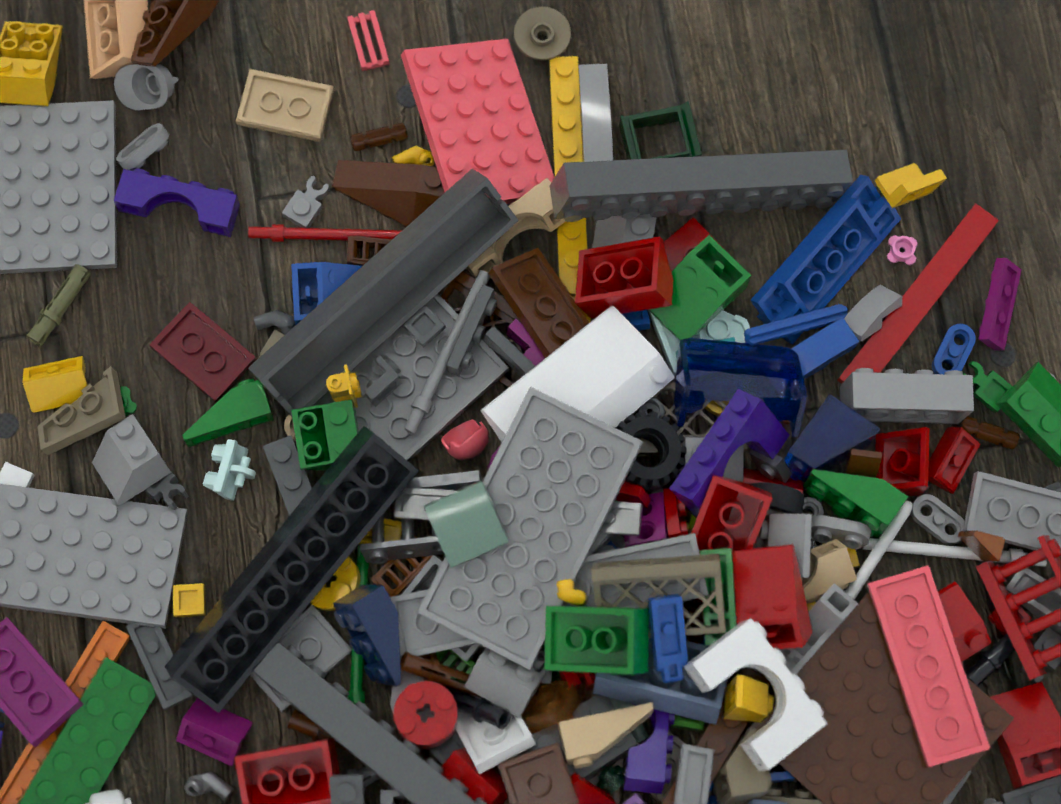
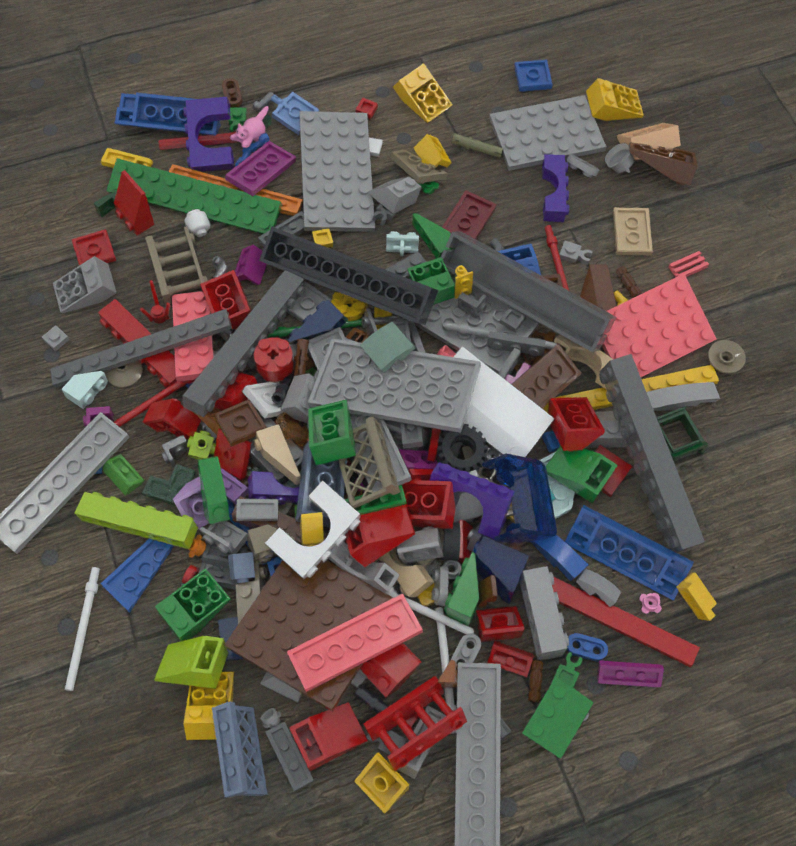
camera: 80 degrees right, 10 degrees down
(568, 594) = (354, 413): yellow arm -> none
(668, 636) = (341, 470): blue hinge -> none
(794, 324) = (575, 536): blue axle -> none

